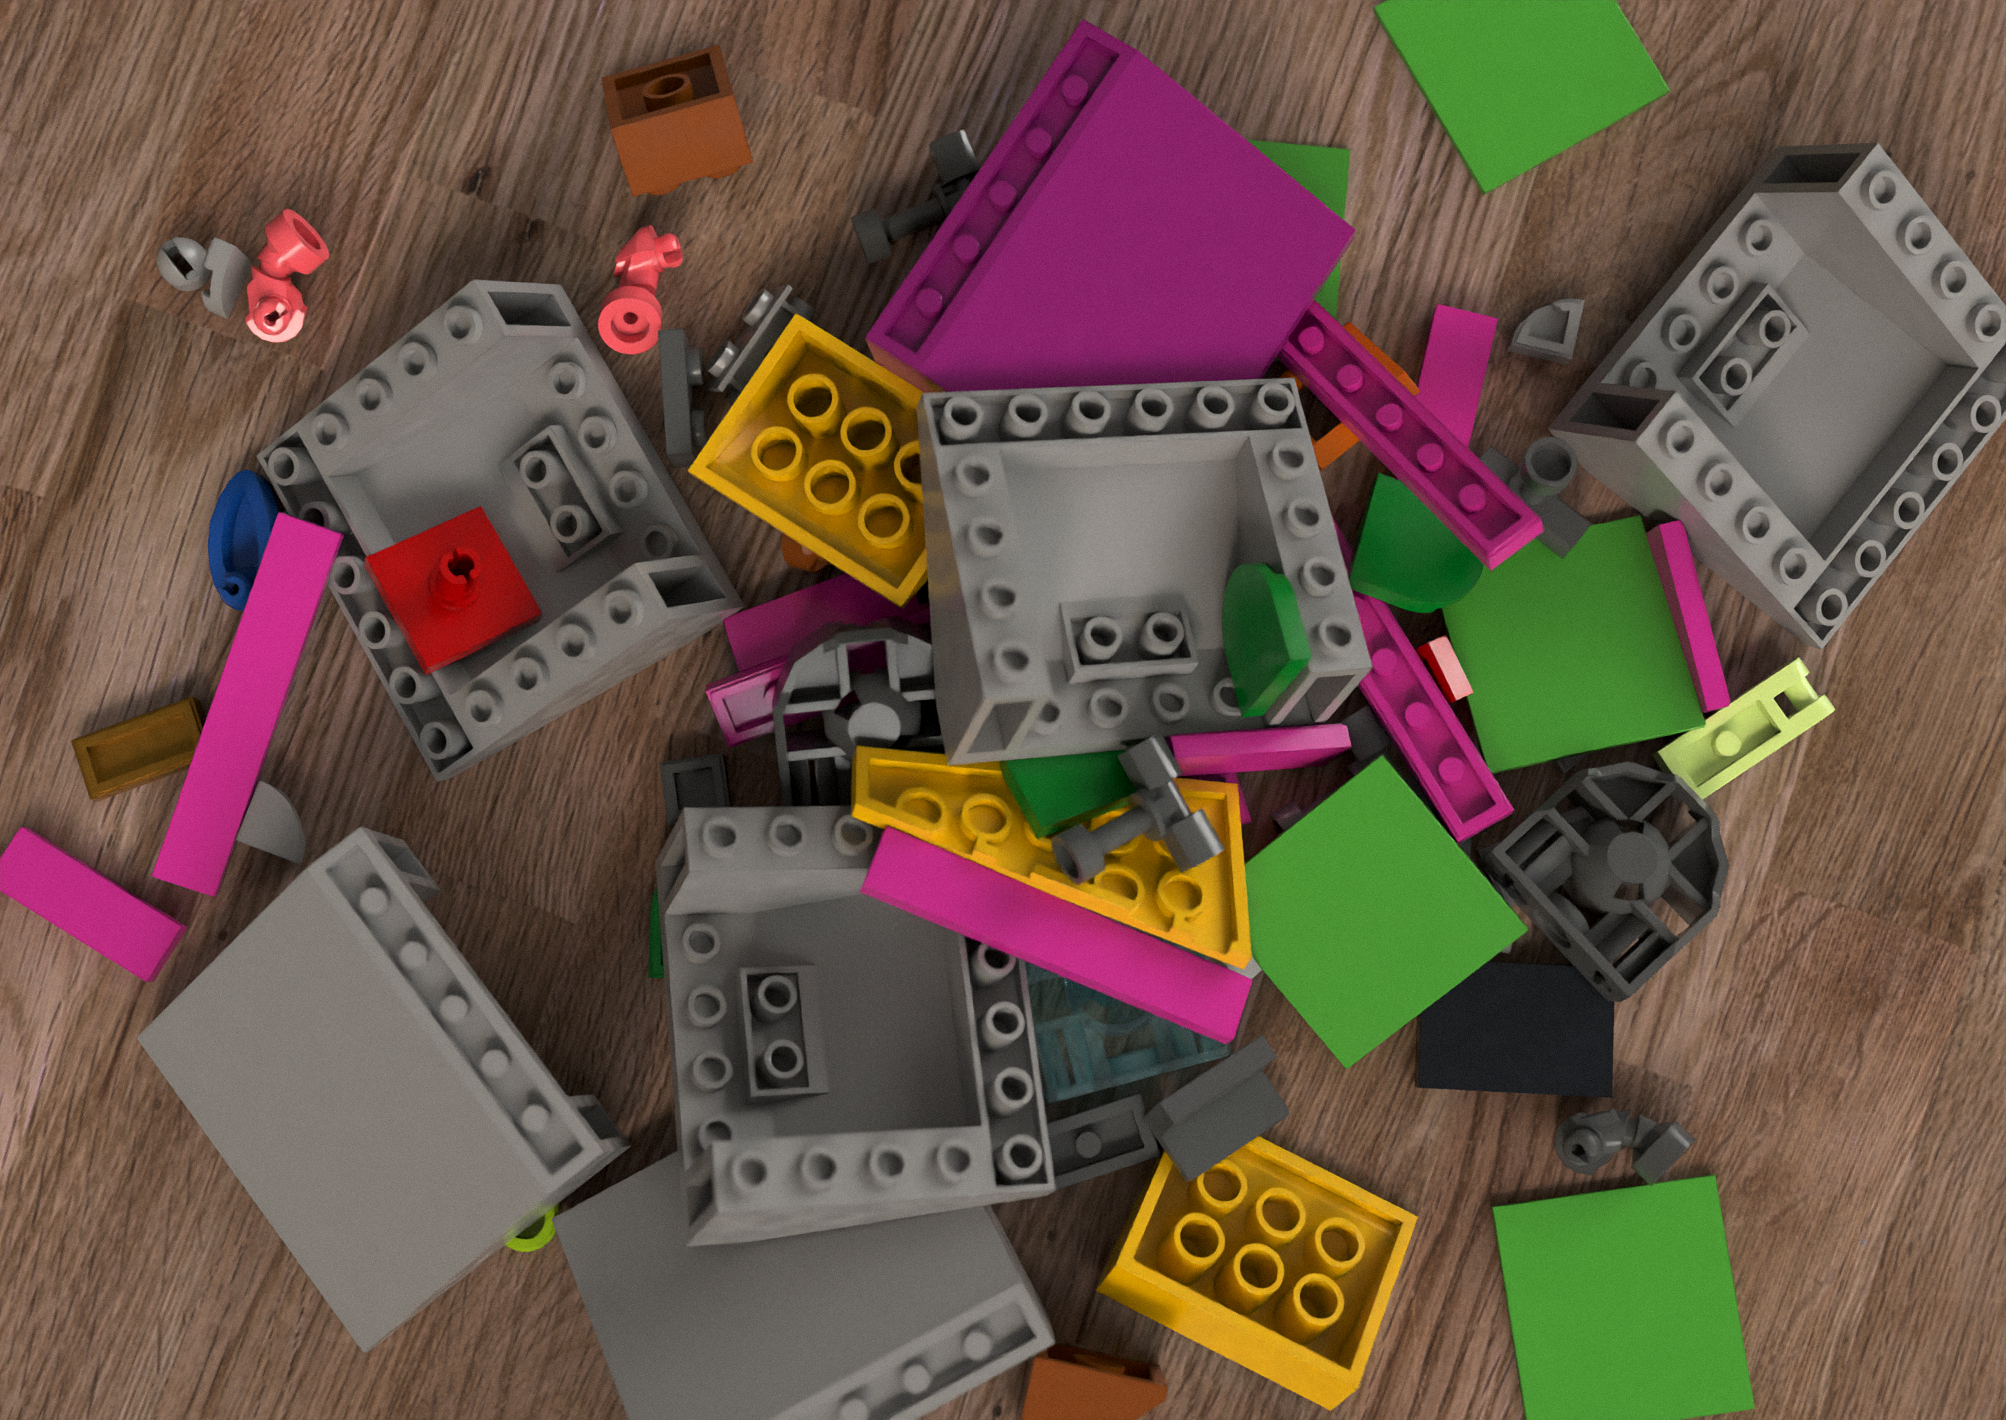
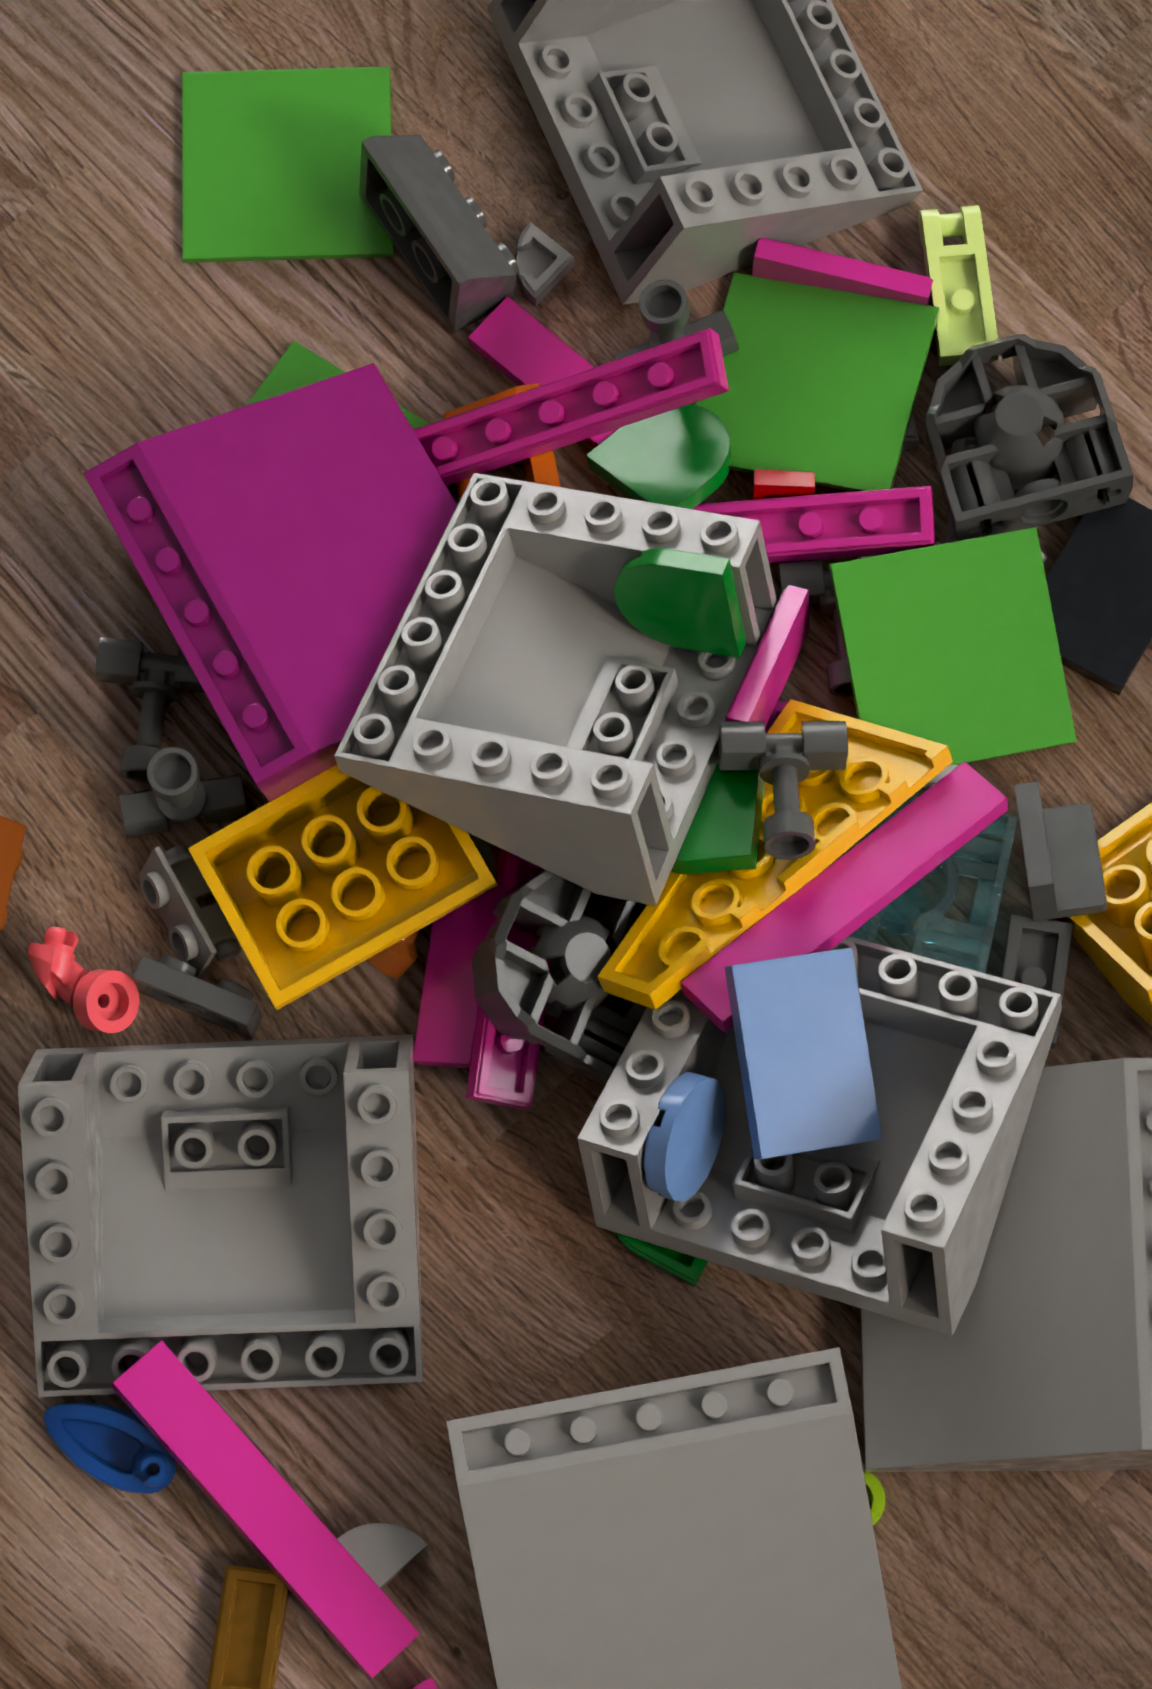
camera: 60 degrees left, 10 degrees down
(452, 589) = (261, 1275): red tile -> none
(694, 784) = (548, 1162): dark grey tile -> none
(747, 908) = (689, 1136): none -> medium blue tile
(845, 270) = (180, 795): none -> dark grey bar
(876, 974) = (803, 1053): none -> medium blue tile
(1528, 216) = (435, 228): none -> dark grey slope

